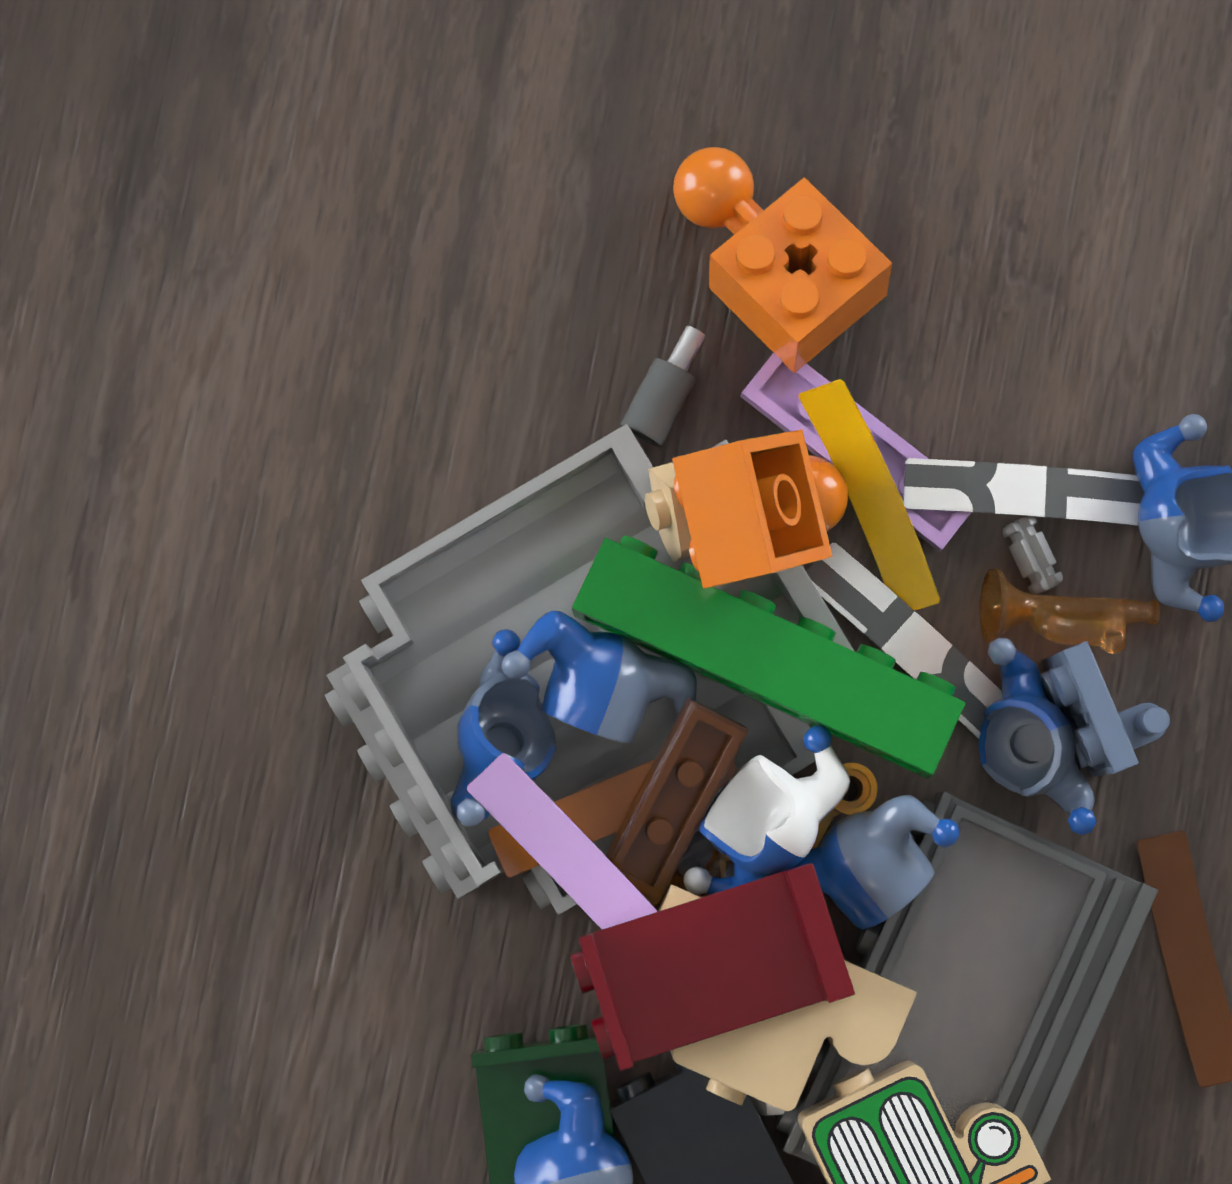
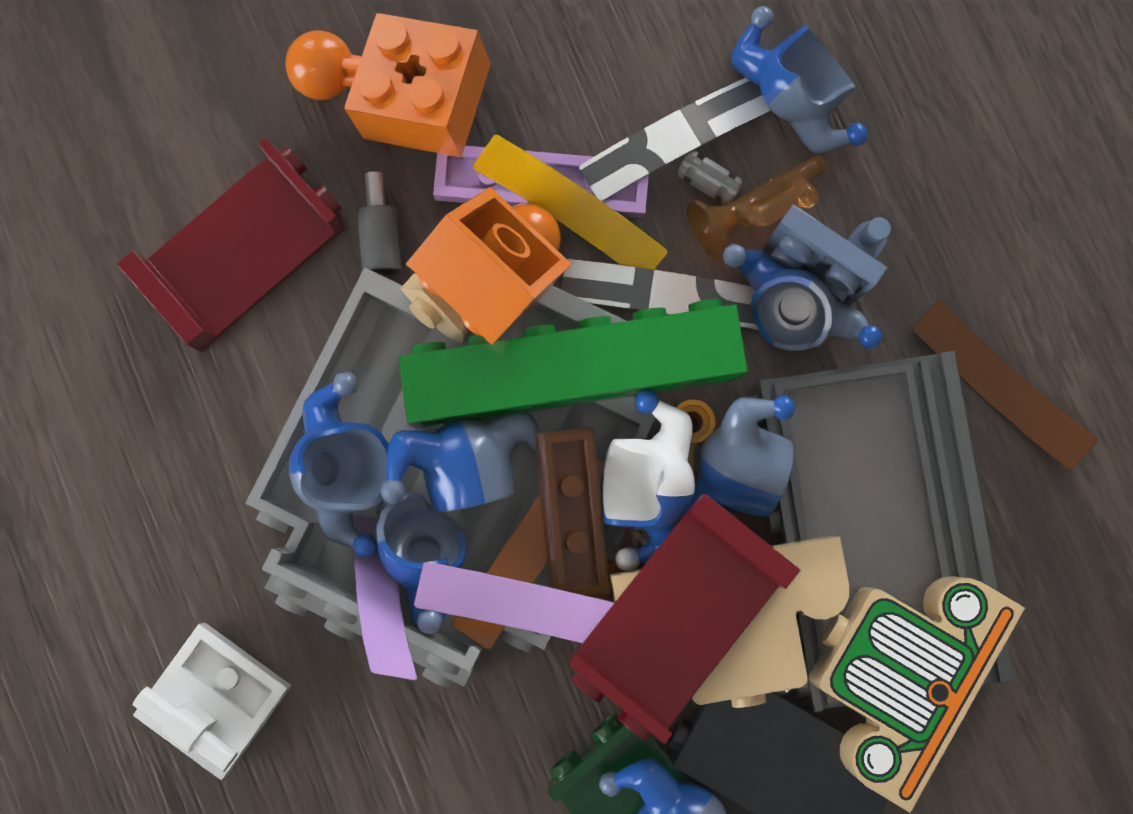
camera: 30 degrees left, 0 degrees up
(201, 750) = (211, 700): none -> white plate
(434, 760) = (380, 612): none -> lavender sticker
(478, 605) = (338, 465): none -> sand blue piece
(513, 317) = (237, 249): none -> dark red panel

